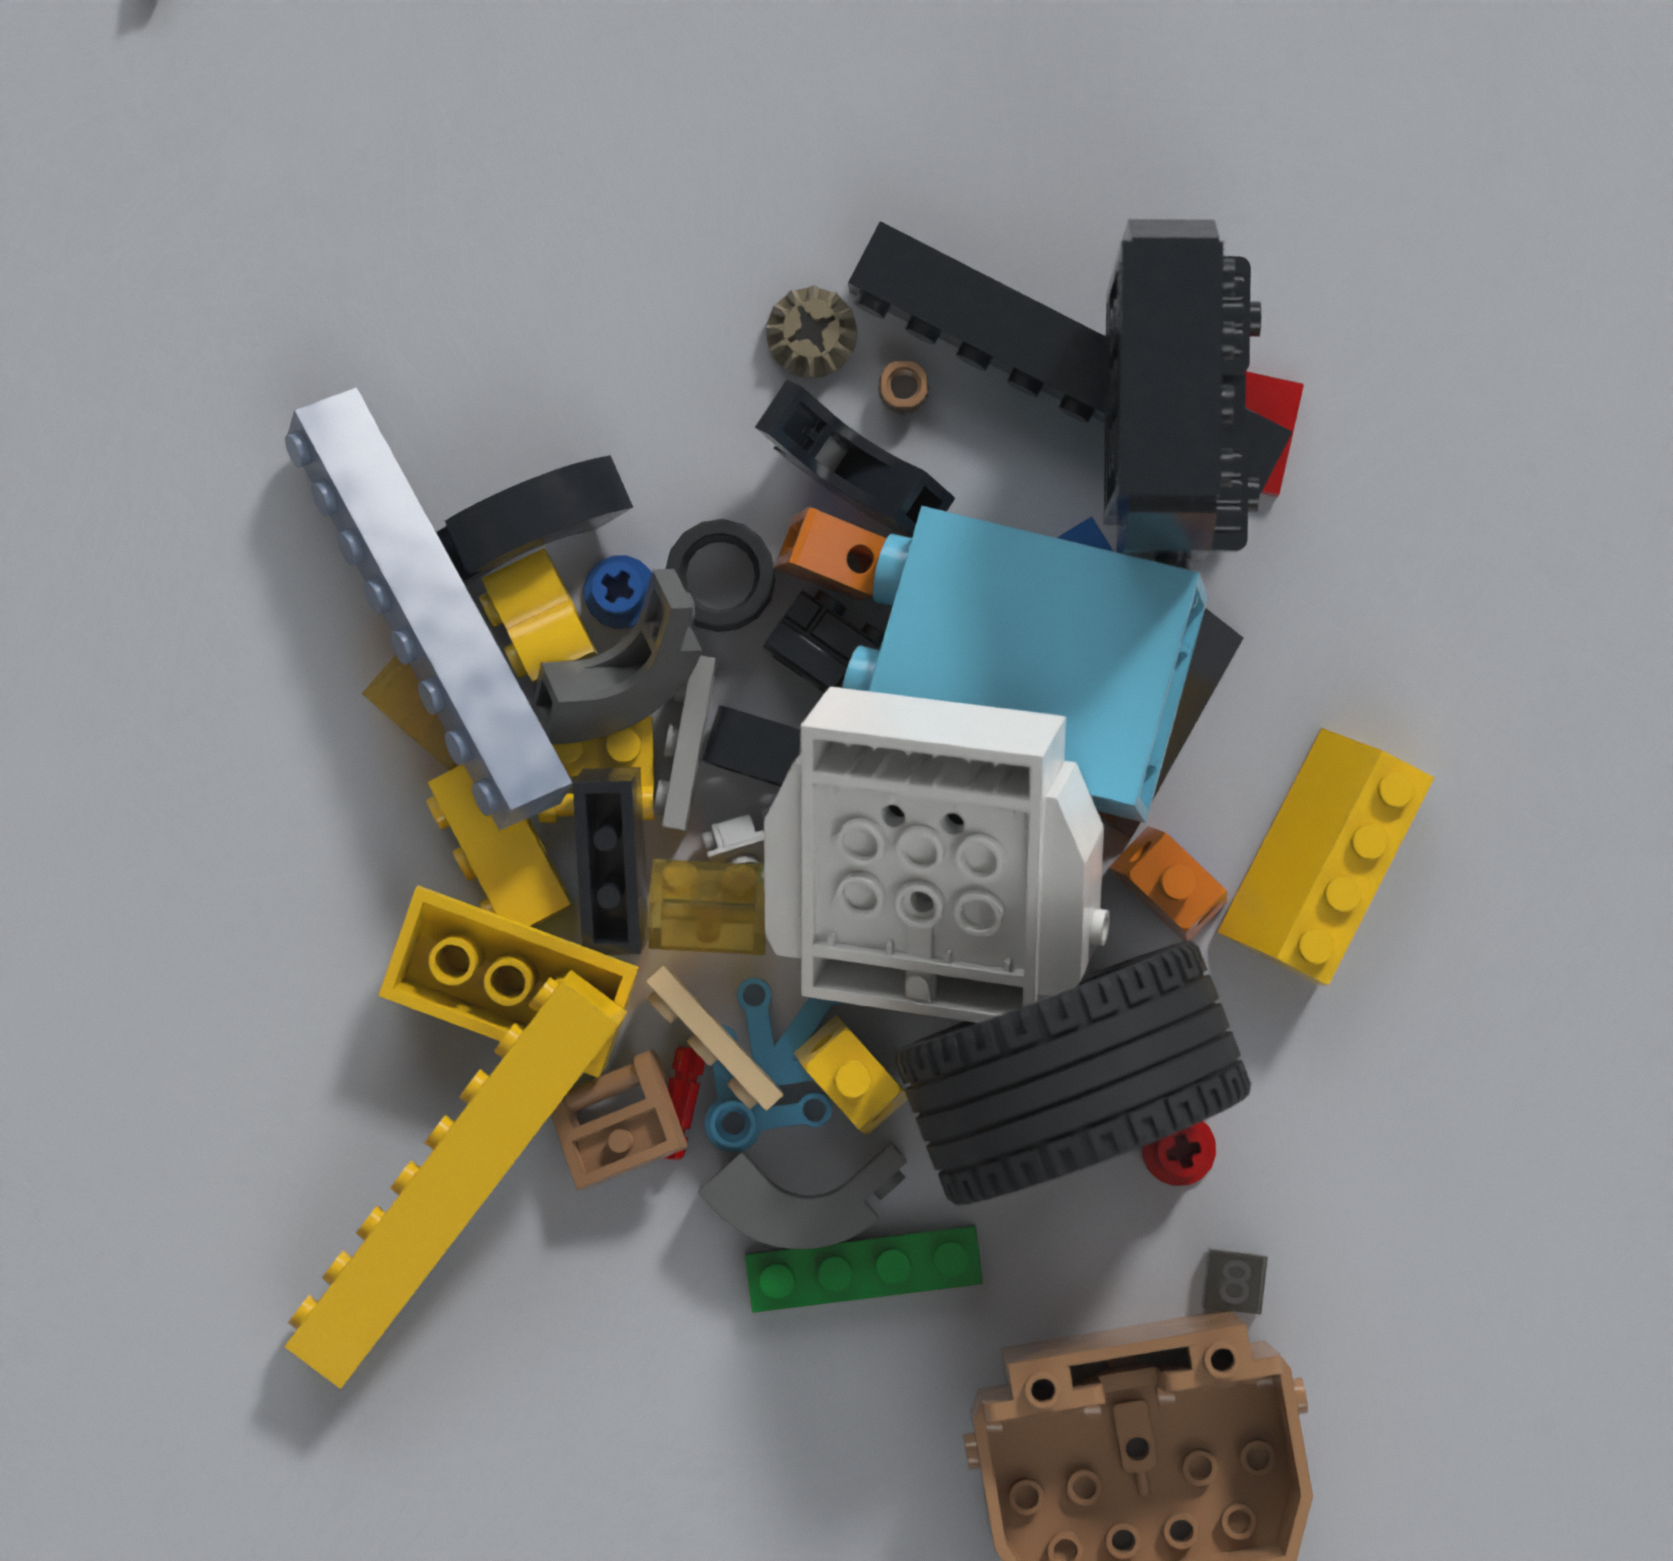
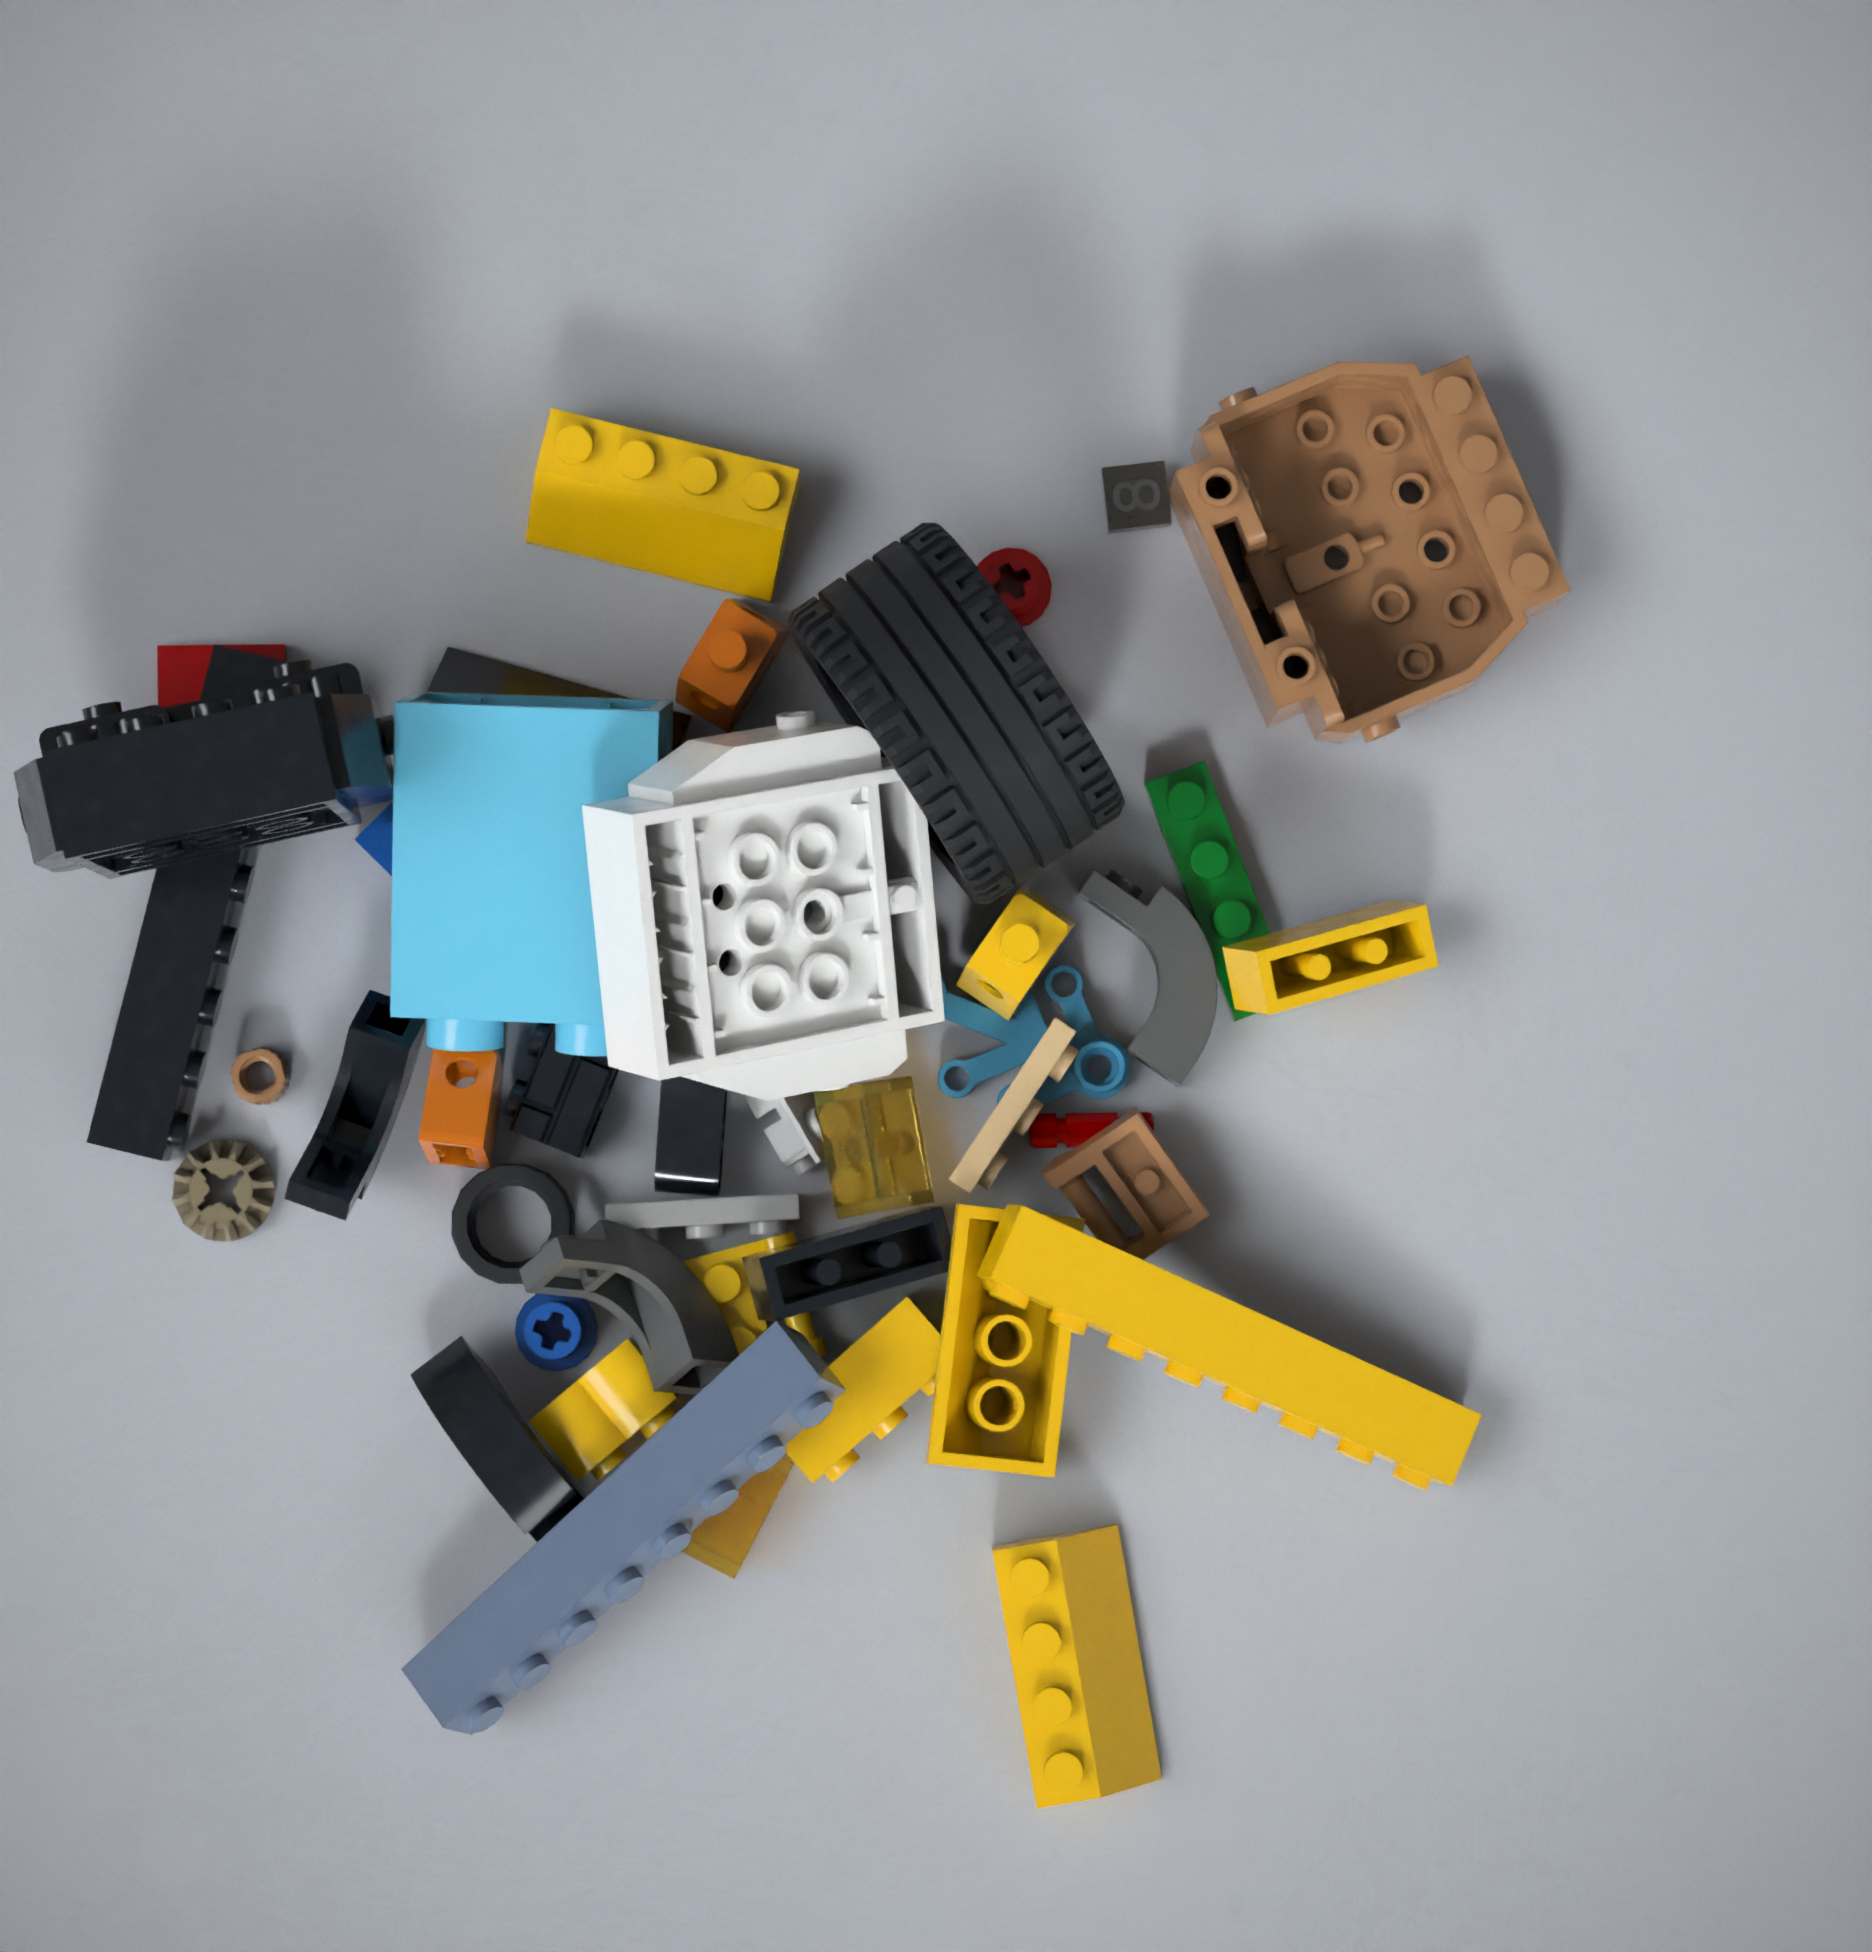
camera: 105 degrees left, 0 degrees up
(214, 975) = (1076, 1665): none -> yellow slope
(778, 1354) = (1330, 957): none -> yellow brick

